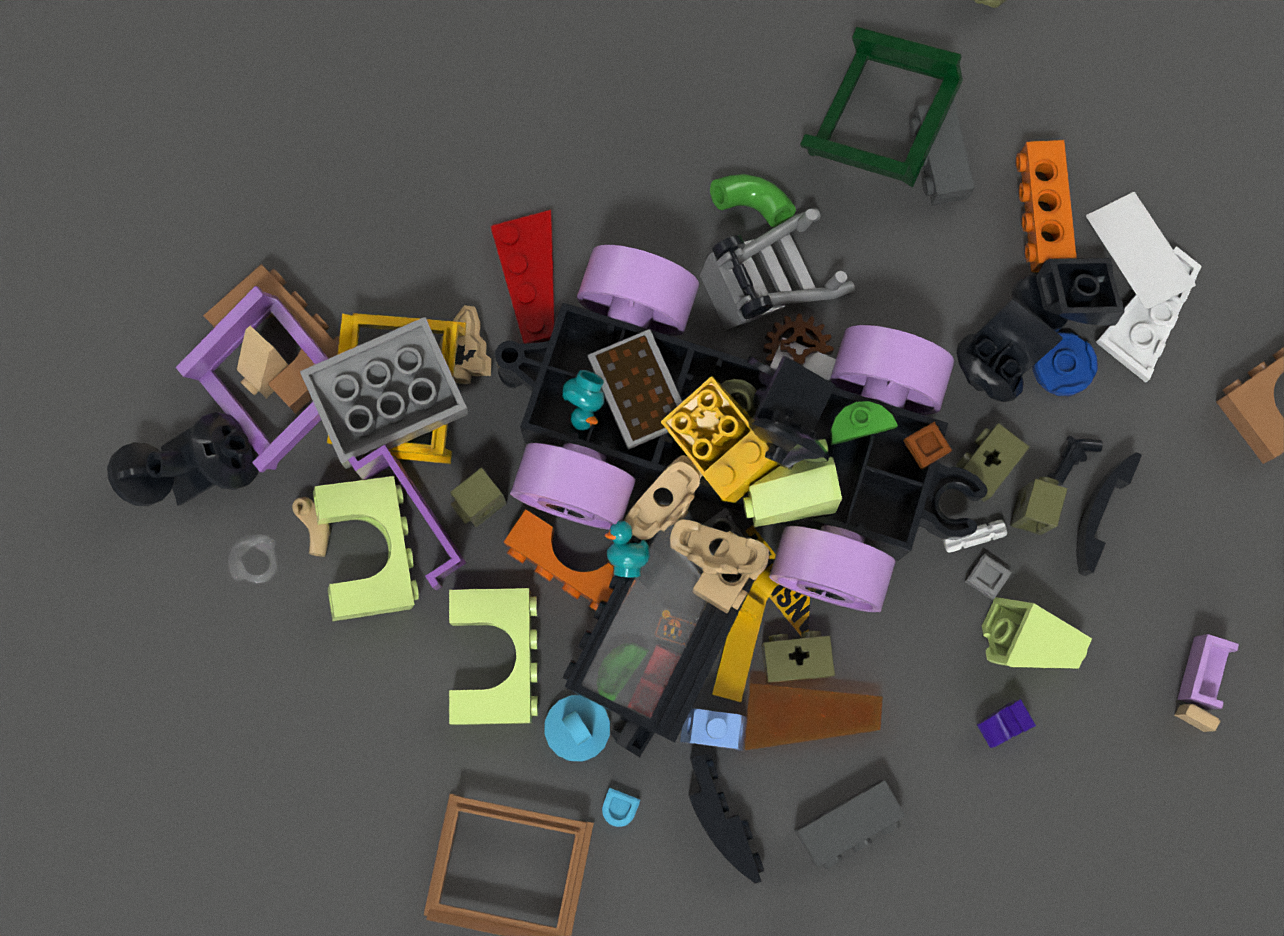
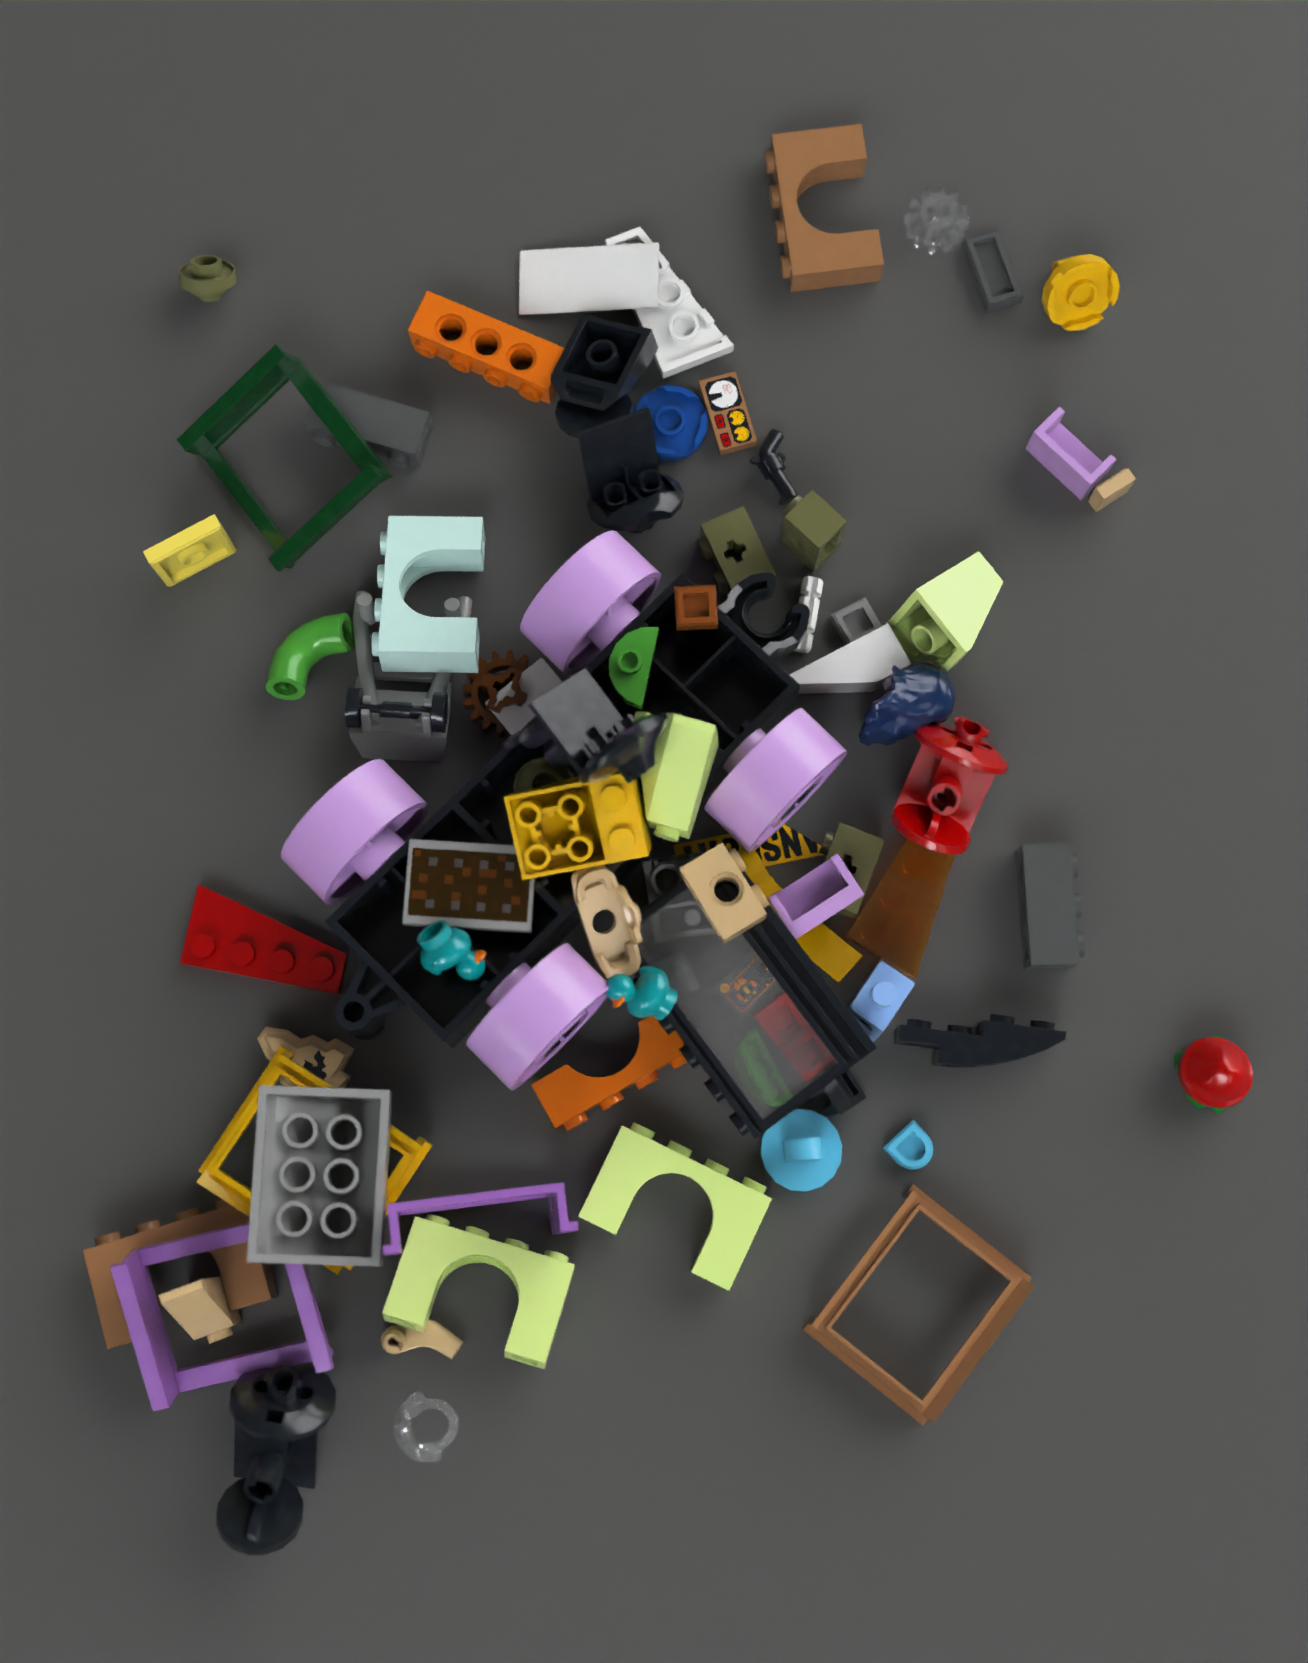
camera: 60 degrees left, 0 degrees up
(477, 498) = (490, 1133): olive brick -> none
(694, 540) = (718, 867): tan piece -> none
(763, 644) = (816, 896): none -> lavender panel
(782, 78) = (190, 551): none -> light yellow tile
(865, 229) = (412, 550): none -> light aqua arch
(898, 701) = (947, 785): none -> red piece
(949, 646) = (917, 699): none -> dark blue piece
(955, 592) = (856, 666): none -> white slope
(1005, 723) = (1022, 687): dark purple leg -> none
(1089, 548) = (880, 504): black slope -> none
(1095, 402) = (727, 413): none -> tile

